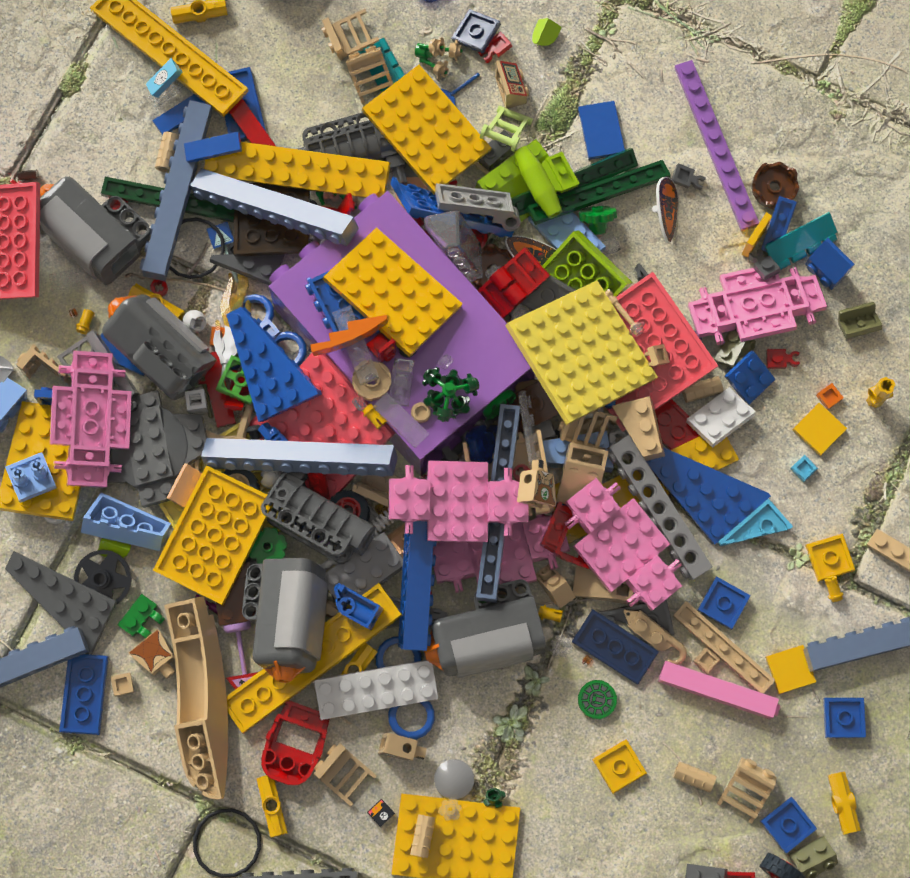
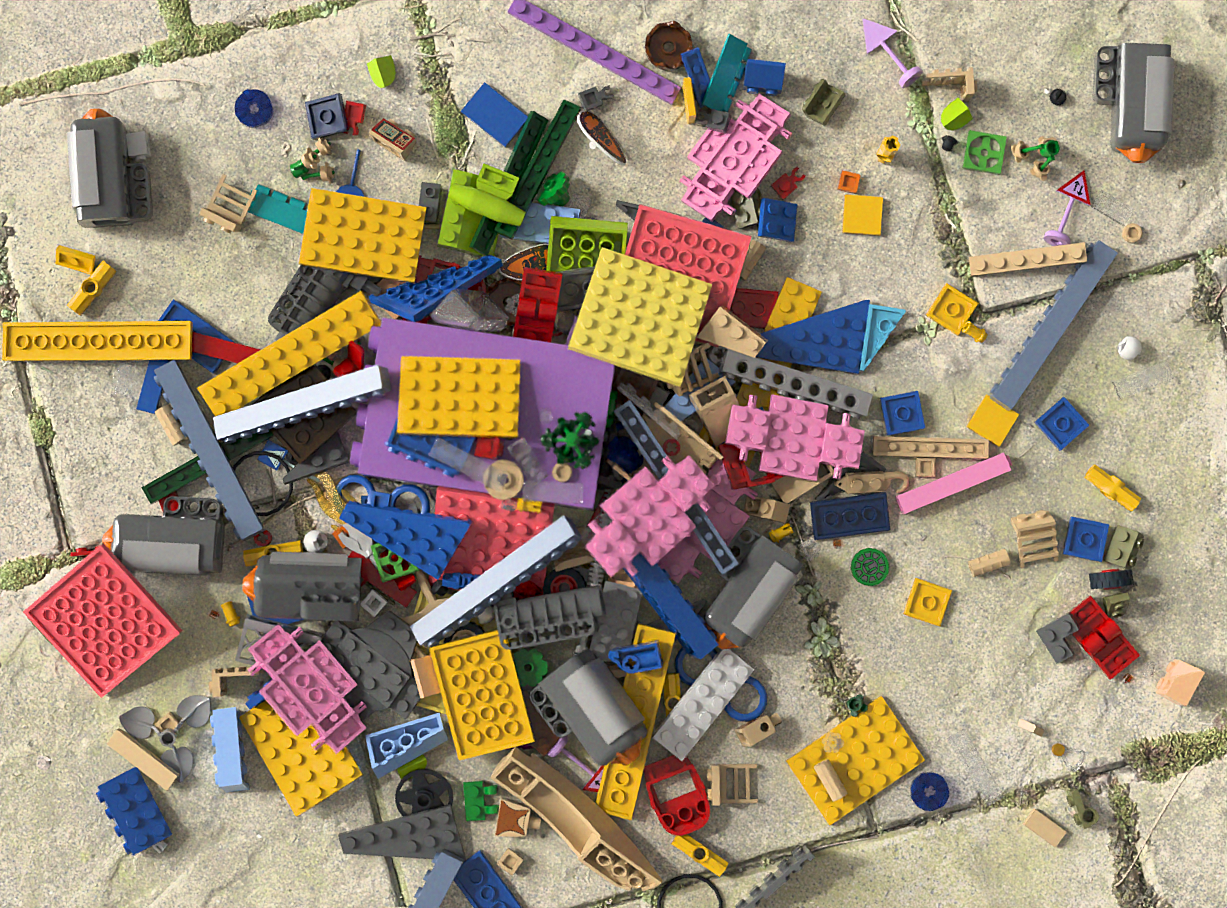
camera: 40 degrees left, 10 degrees up
(29, 174) = (78, 537): dark brown tile -> none
(30, 477) = (303, 771): light blue plate -> none
(164, 78) = (116, 369): medium azure slope -> none
(213, 147) = (208, 394): blue tile -> none
(356, 332) = (462, 456): orange slope -> none
(359, 63) = (262, 219): tan plate -> none
(381, 812) = (783, 788): black tile -> none
(454, 779) = (815, 717): light grey dish -> none
(479, 201) = (465, 254): light grey hinge -> none
(487, 130) = (412, 198): yellowish green piece -> none
(537, 487) = (699, 454): tan torso -> none
(636, 327) = (664, 259): piece -> none
(657, 355) = (698, 268): tan tile -> none
(721, 417) = (781, 270): white plate -> none
(804, 468) = (876, 256): medium azure tile -> none

